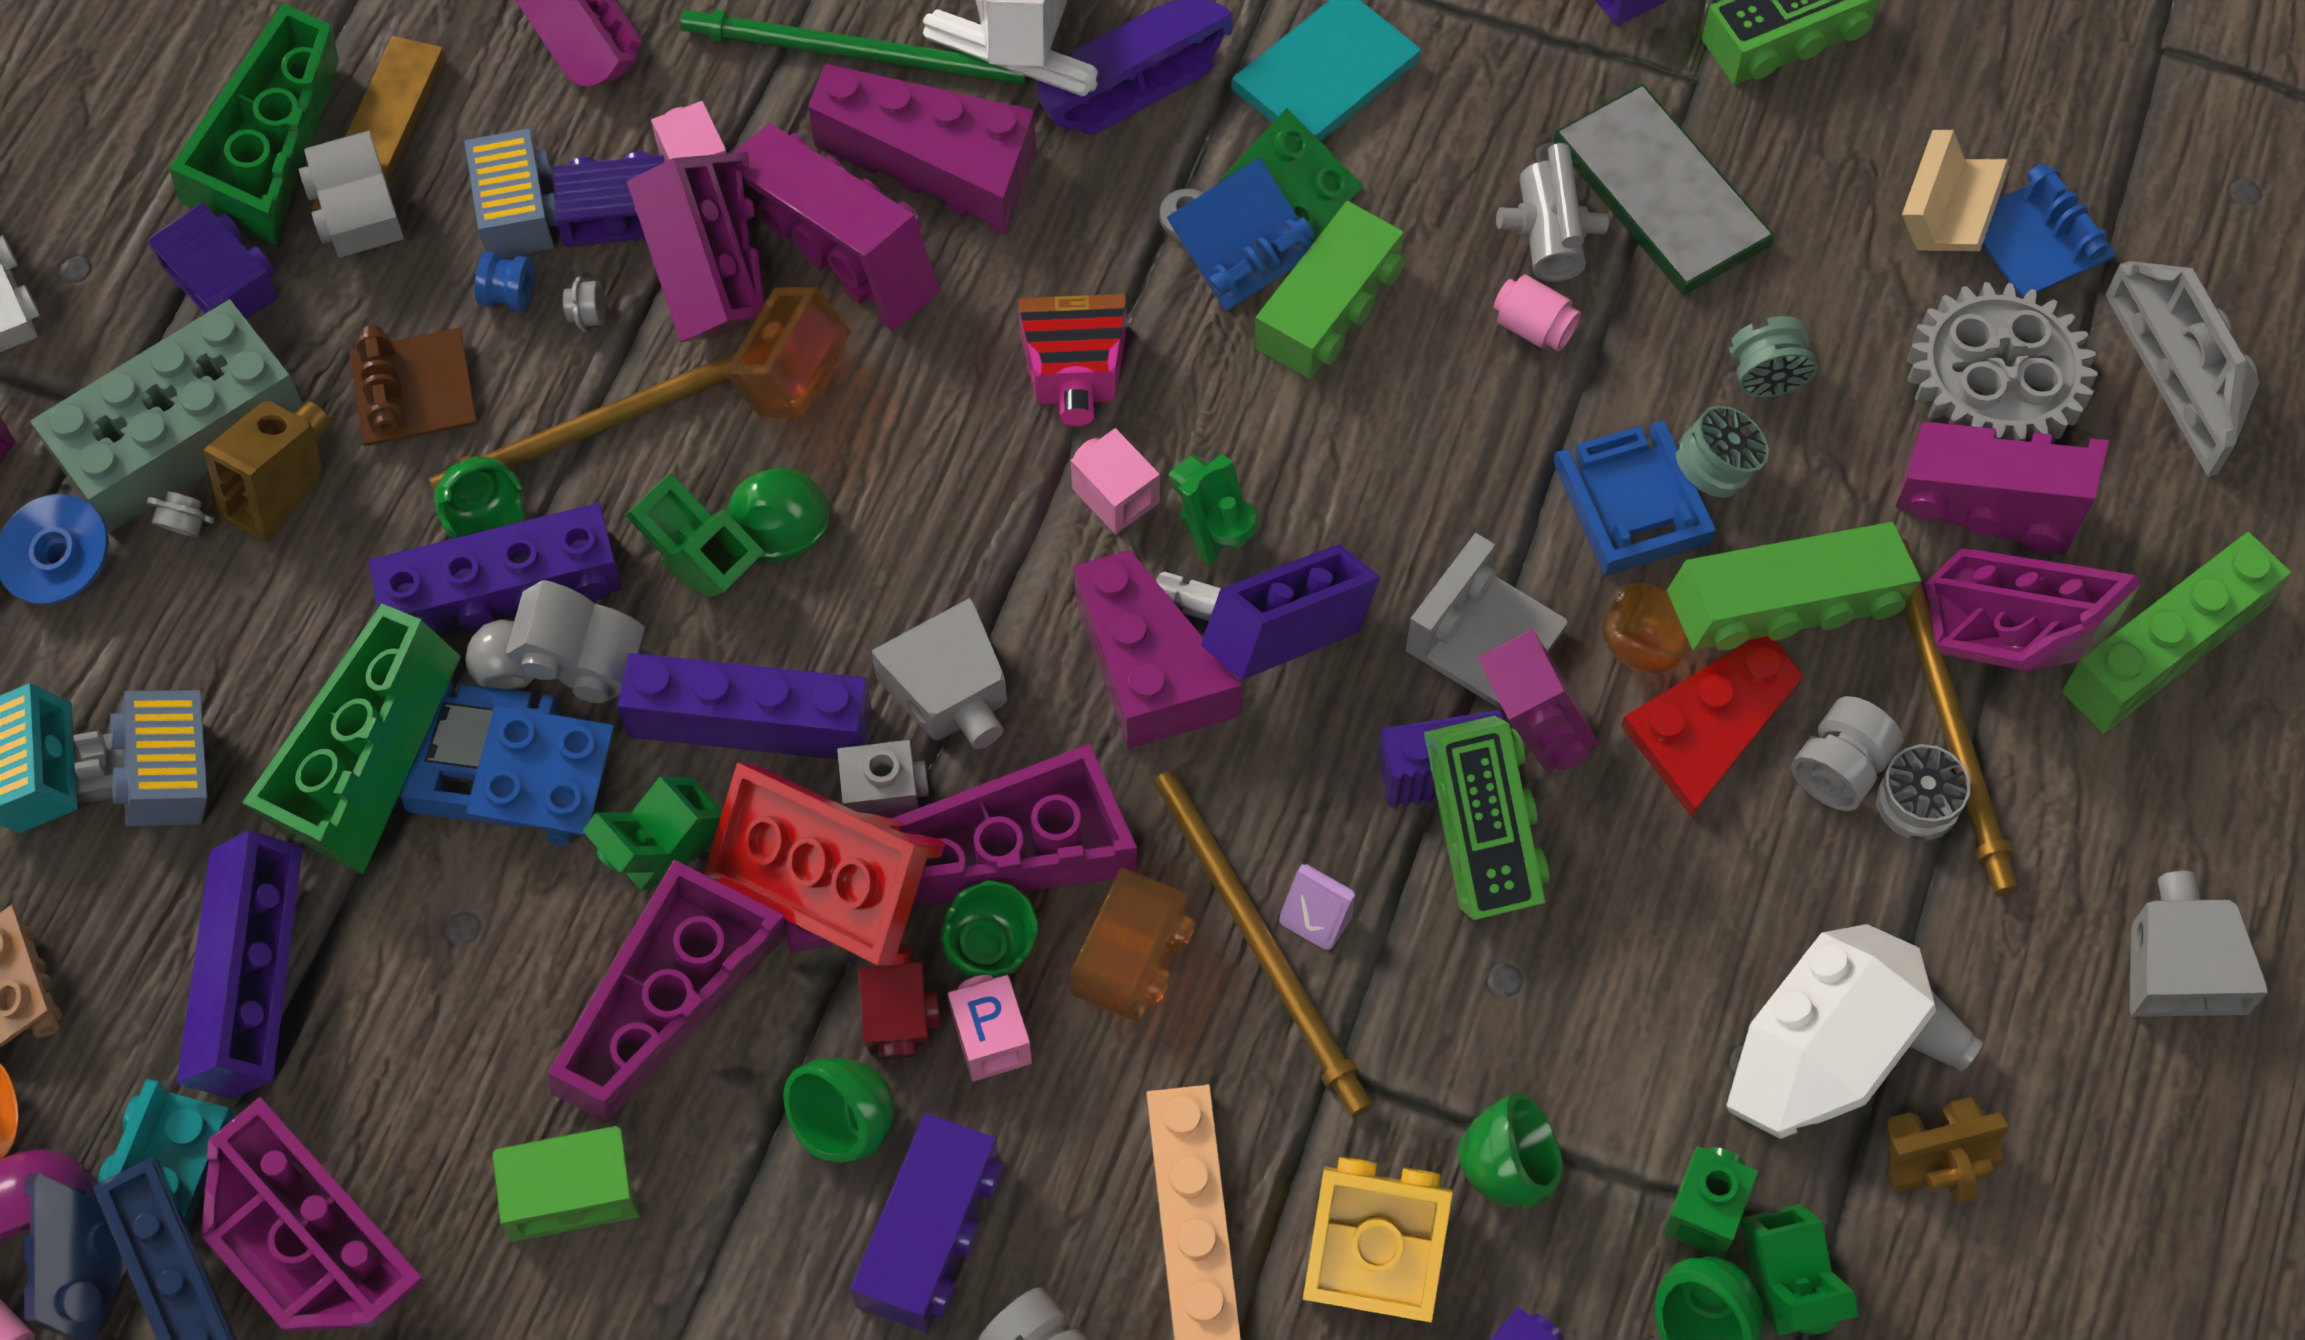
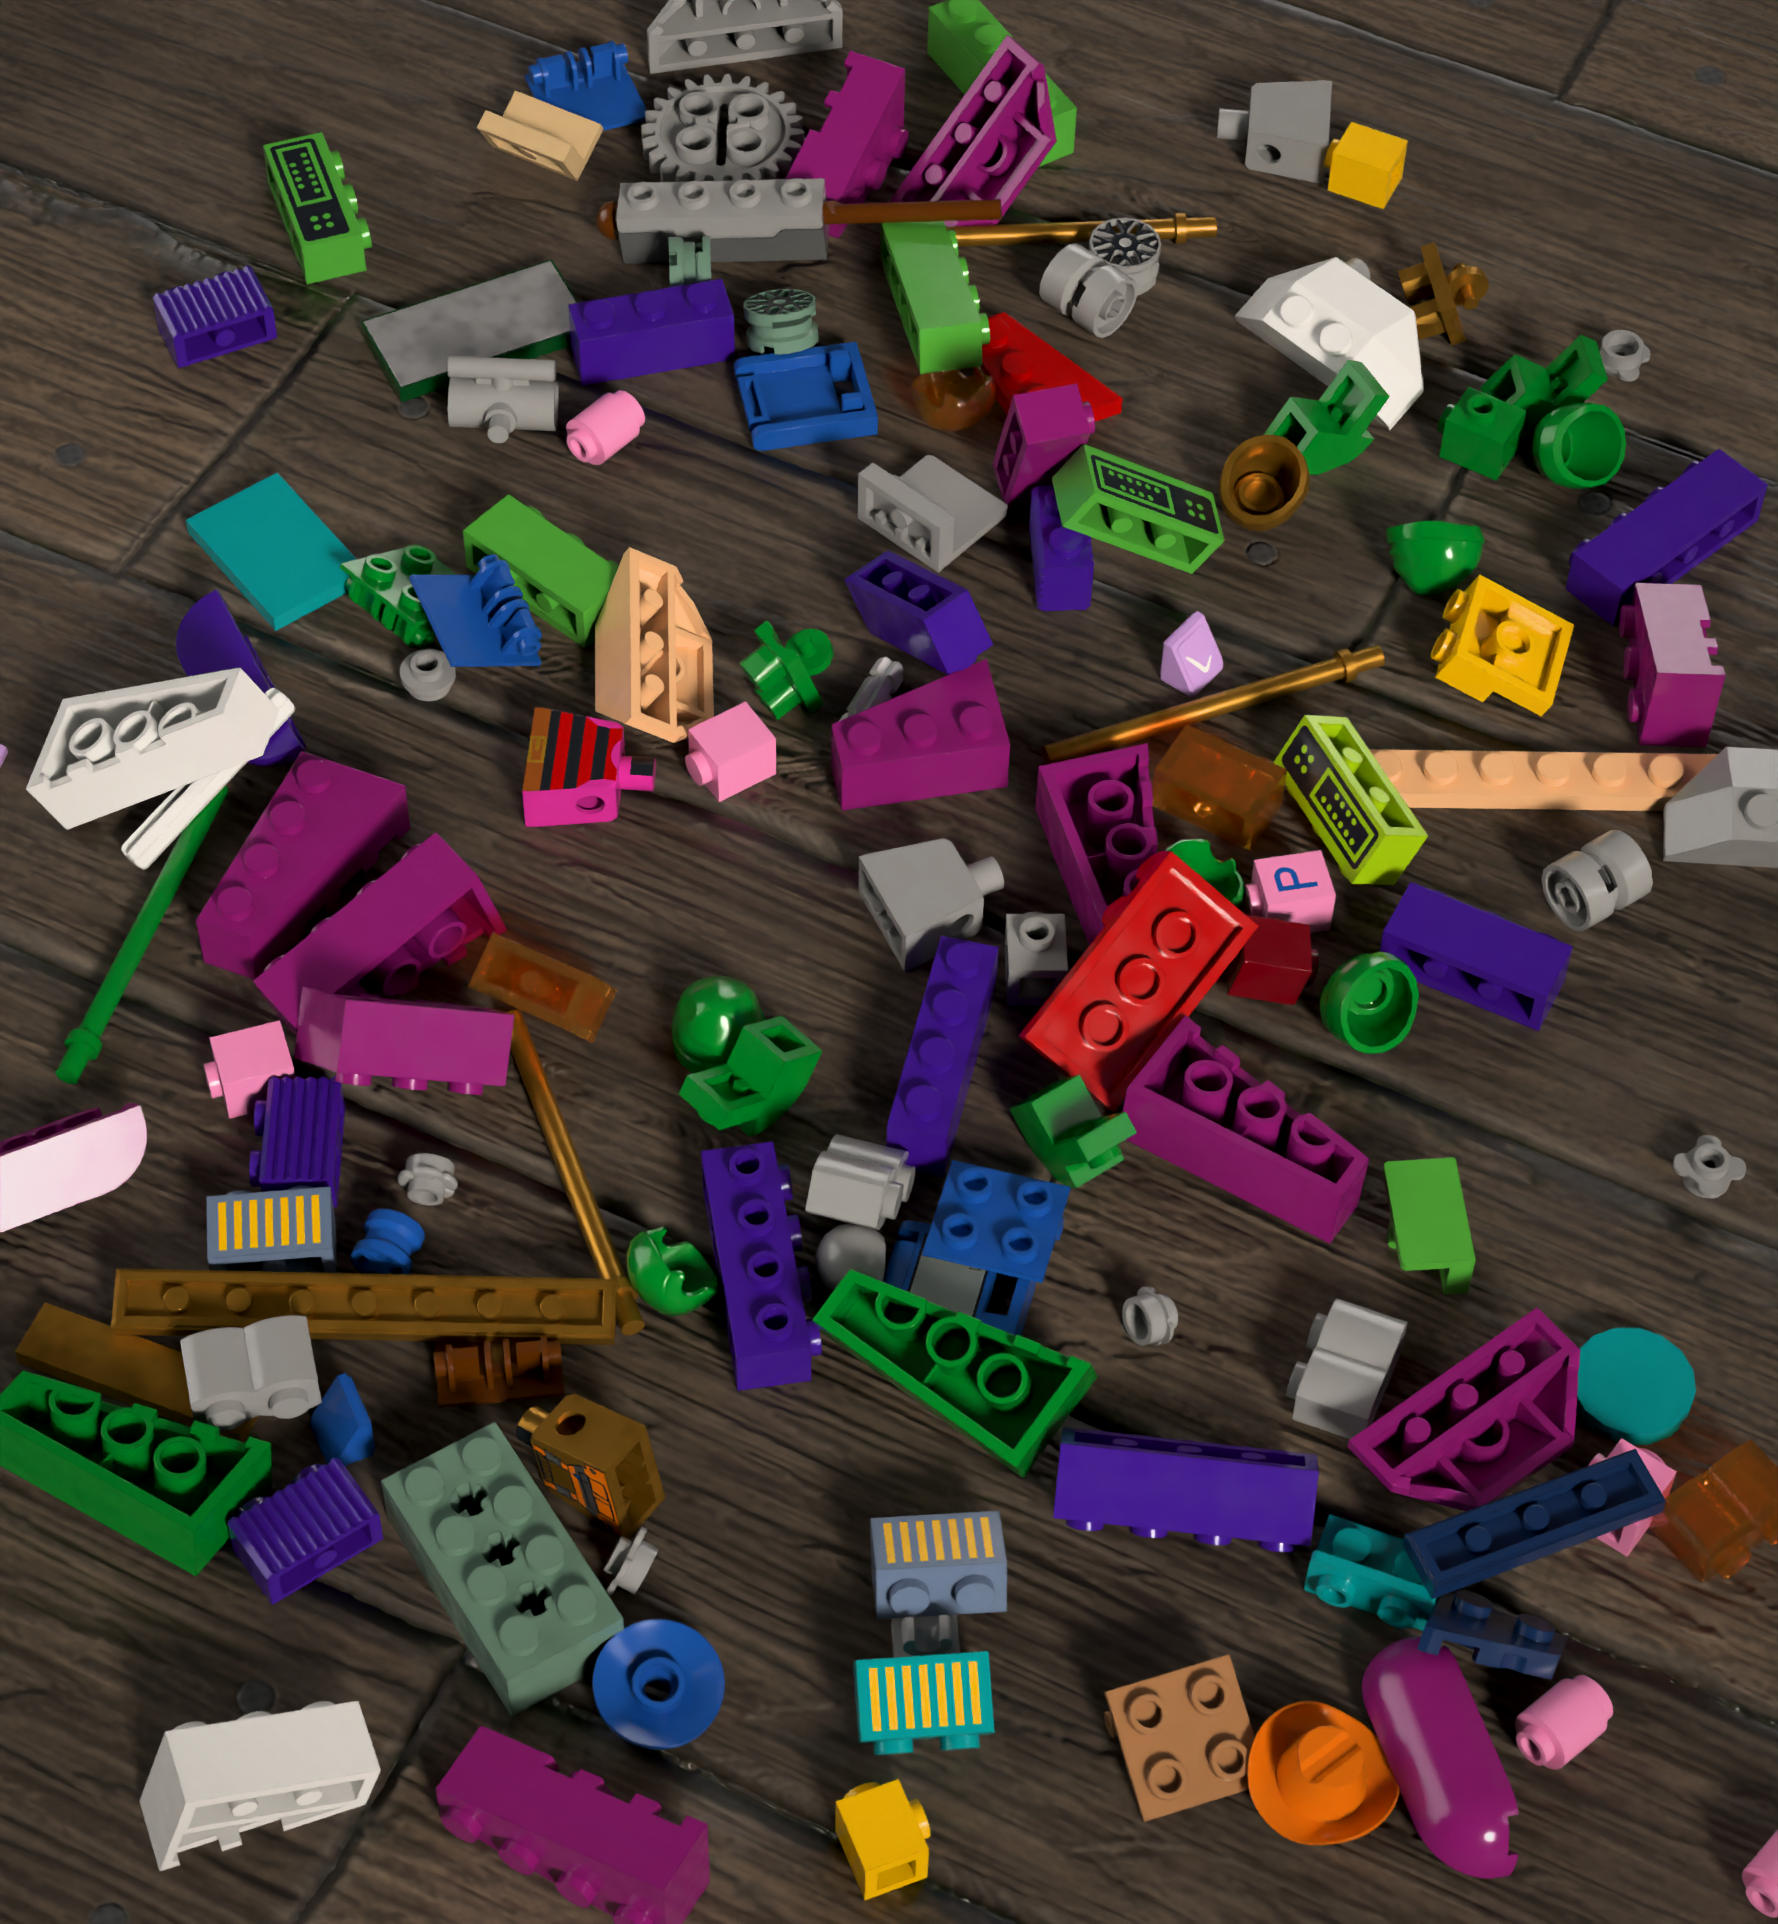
camera: 85 degrees left, 10 degrees down
(326, 285) = (343, 1424): none -> blue slope
(390, 1114) = (1347, 1369): none -> light grey brick
(432, 278) = (369, 1305): none -> pearl gold tile
(454, 928) = (1150, 1317): none -> light grey plate
(1114, 1073) = (1350, 800): none -> lime brick
(1214, 397) = (652, 651): none -> light nougat wedge
(1573, 957) = (1263, 482): none -> pearl gold hat
(1679, 333) = (651, 332): none -> dark purple brick
(1683, 1023) = (1336, 425): none -> green brick
(1864, 409) = (754, 218): none -> piece
(2142, 1048) = (1366, 164): none -> yellow brick

